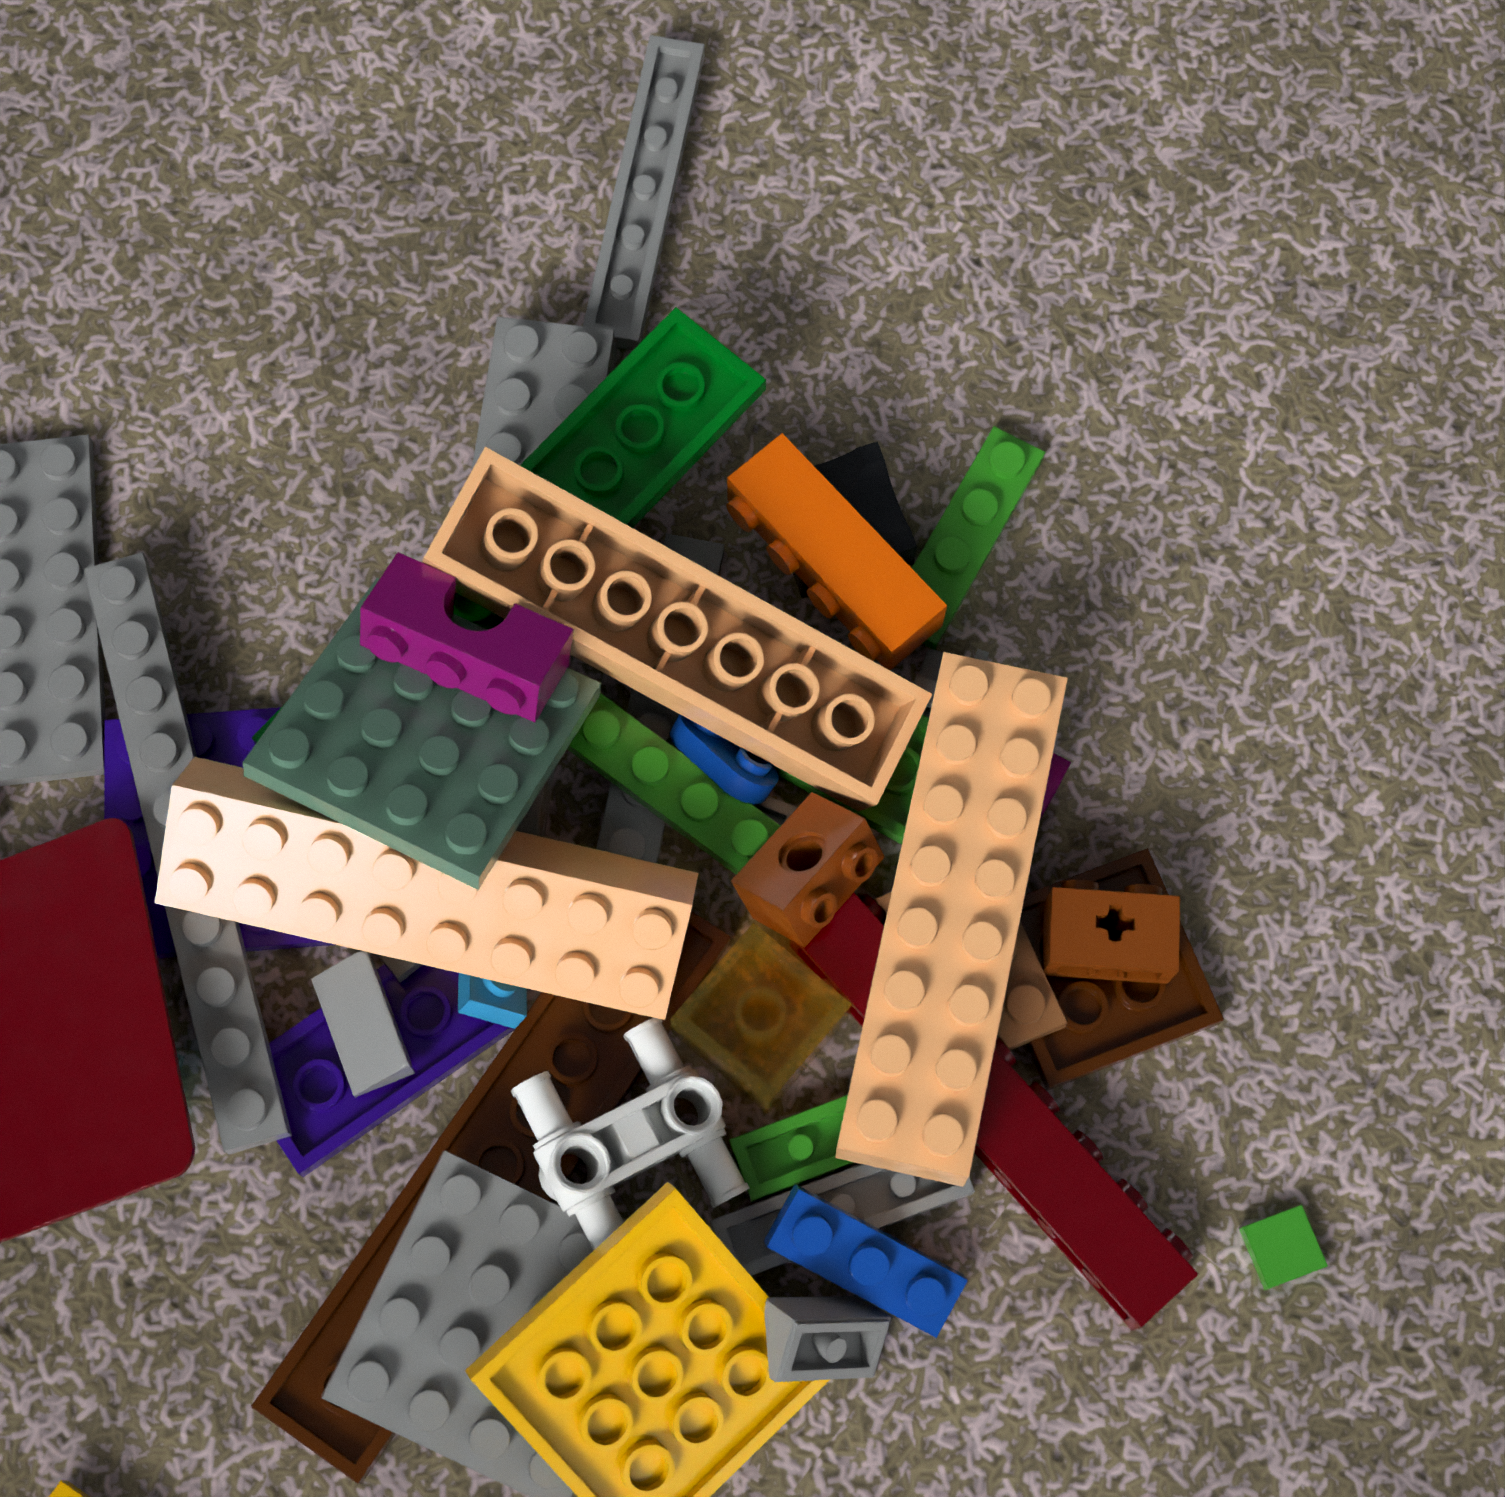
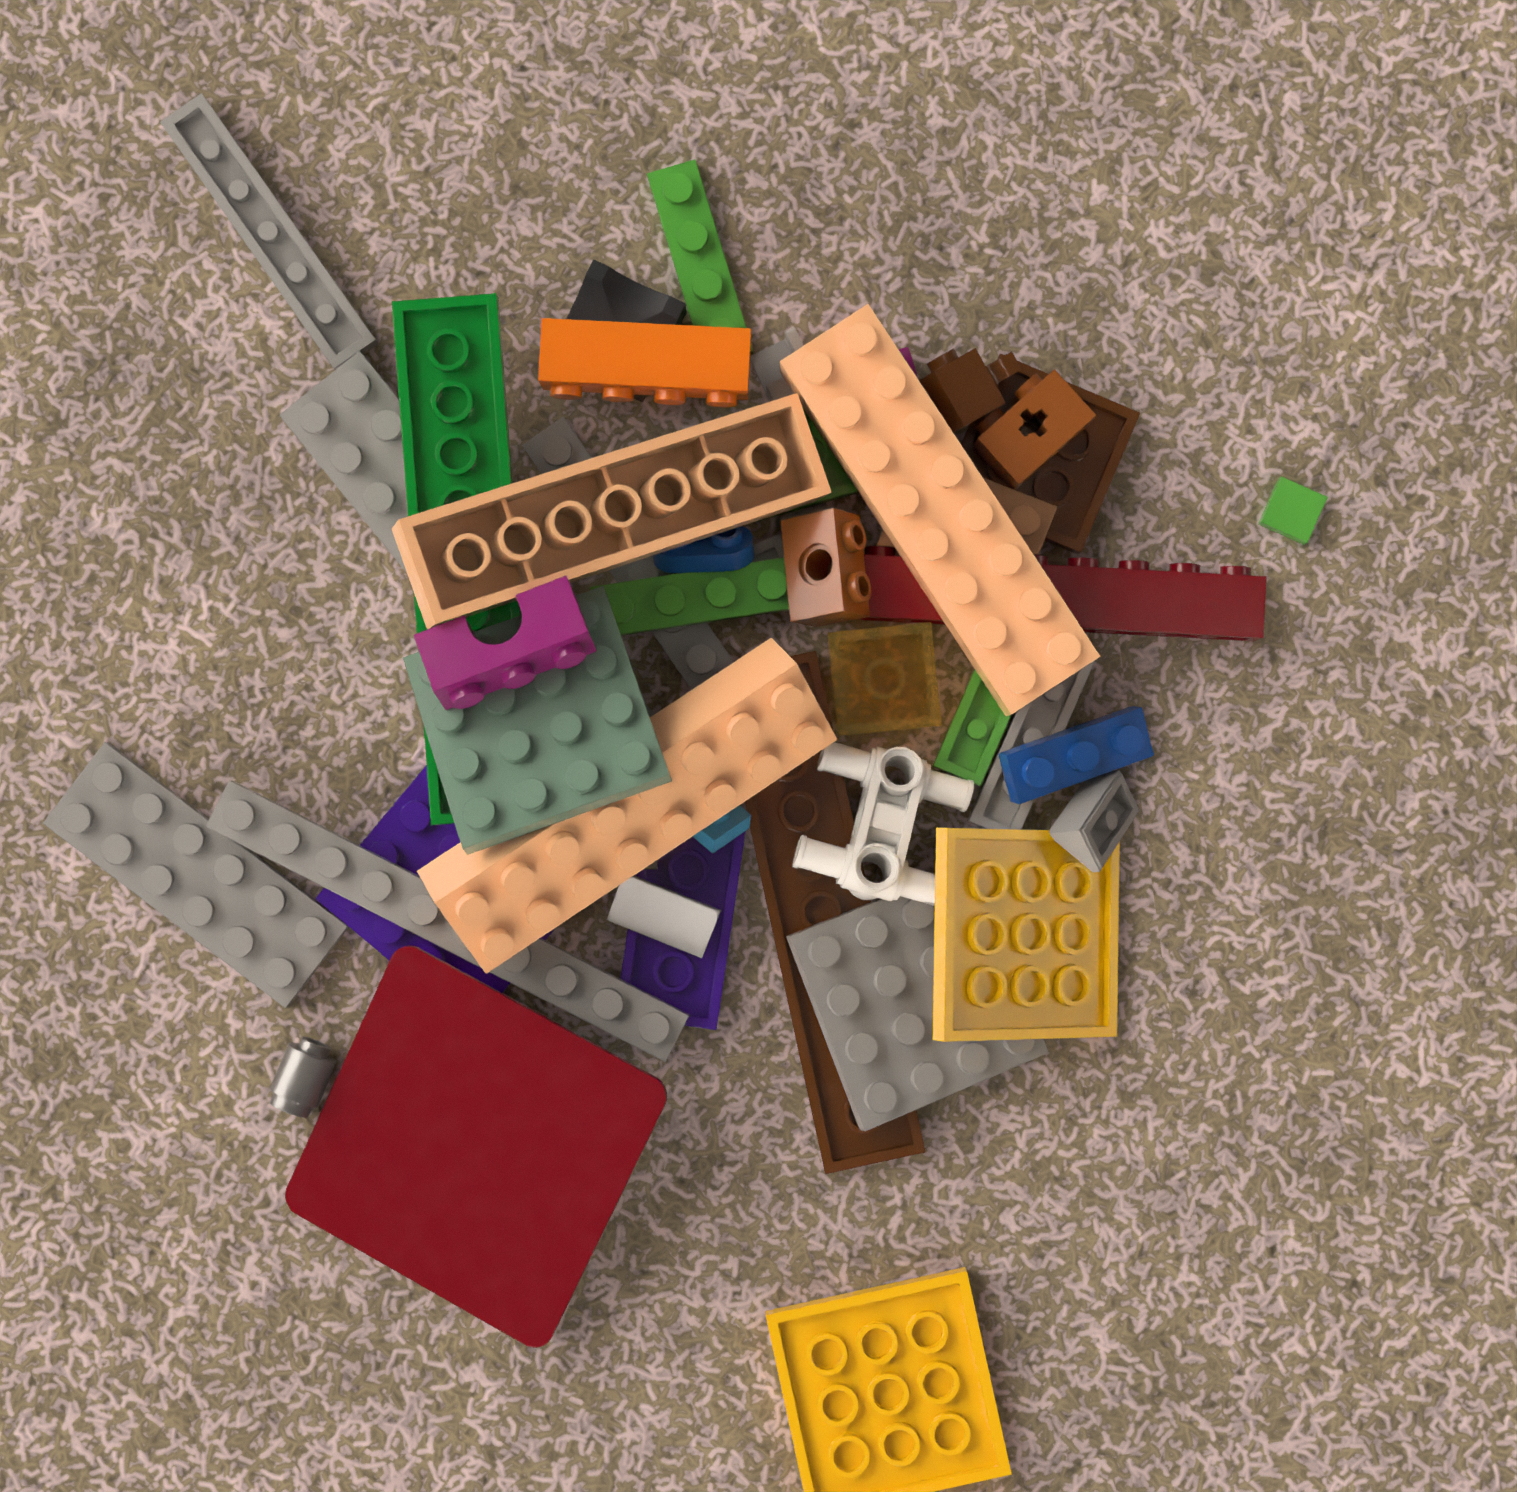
camera: 45 degrees left, 15 degrees up
(1082, 838) = (966, 387): none -> reddish brown brick

